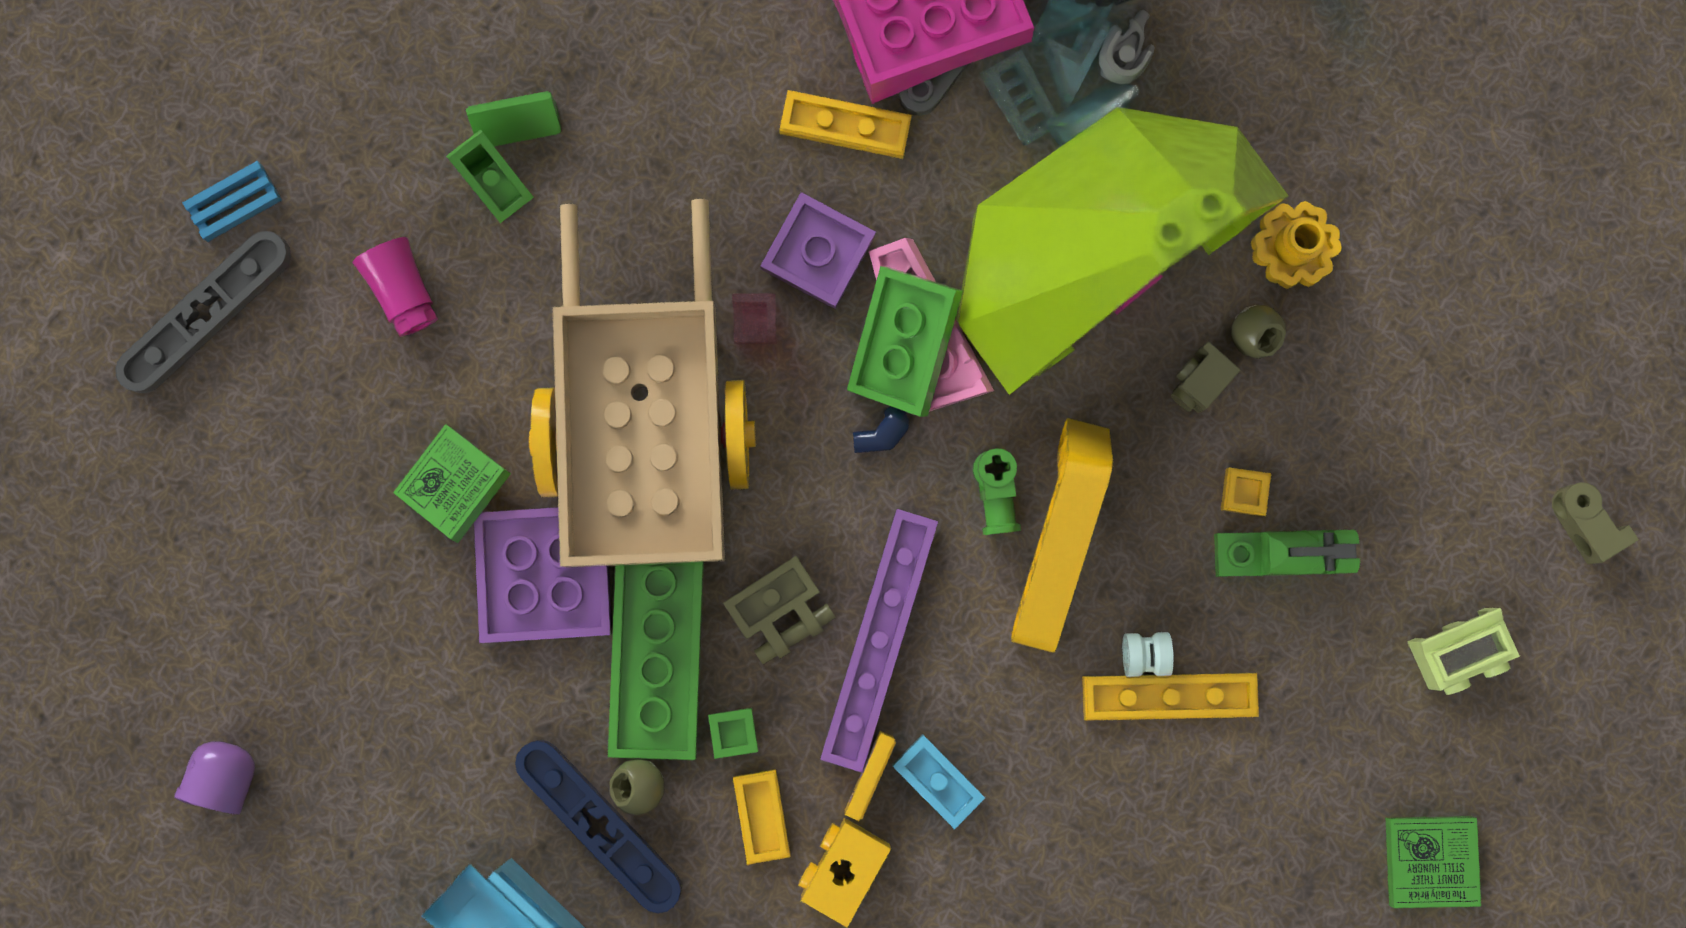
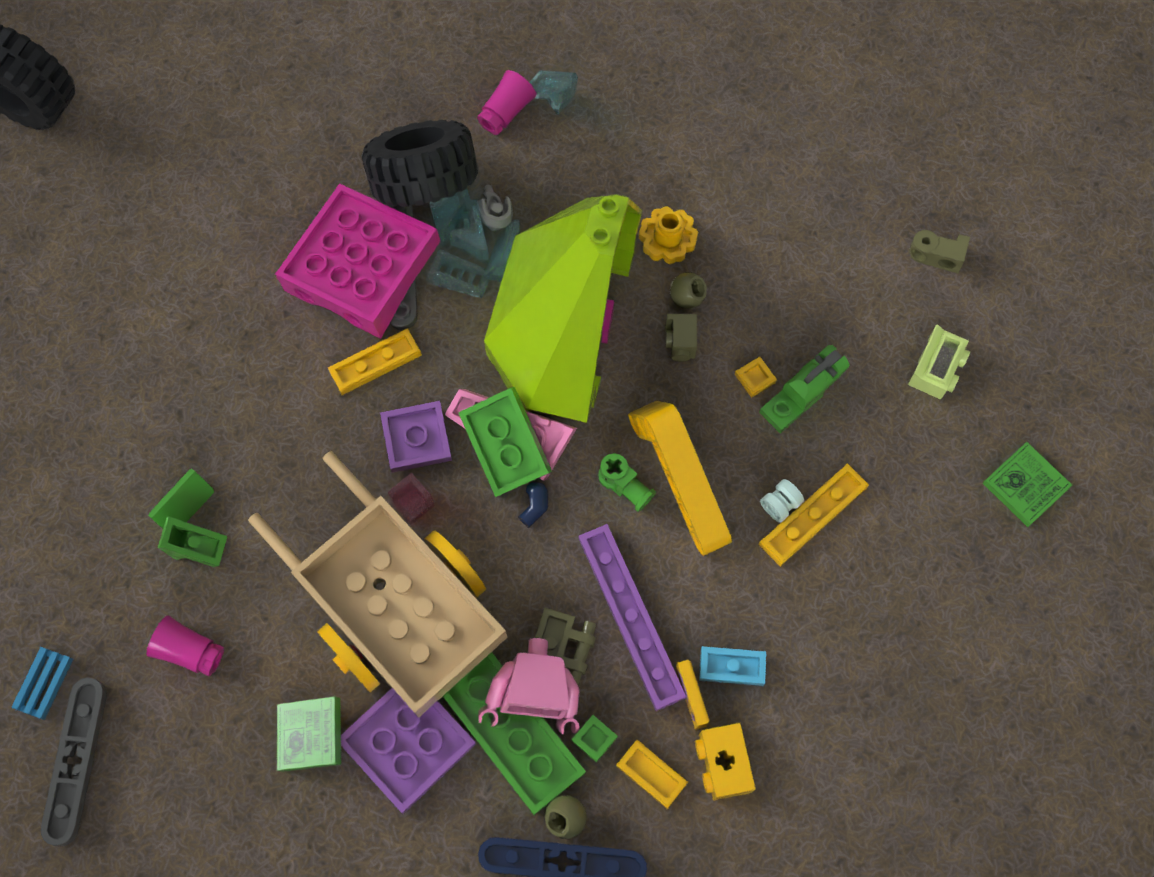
camera: 35 degrees left, 15 degrees down
(710, 634) = (534, 687): none -> bright pink torso

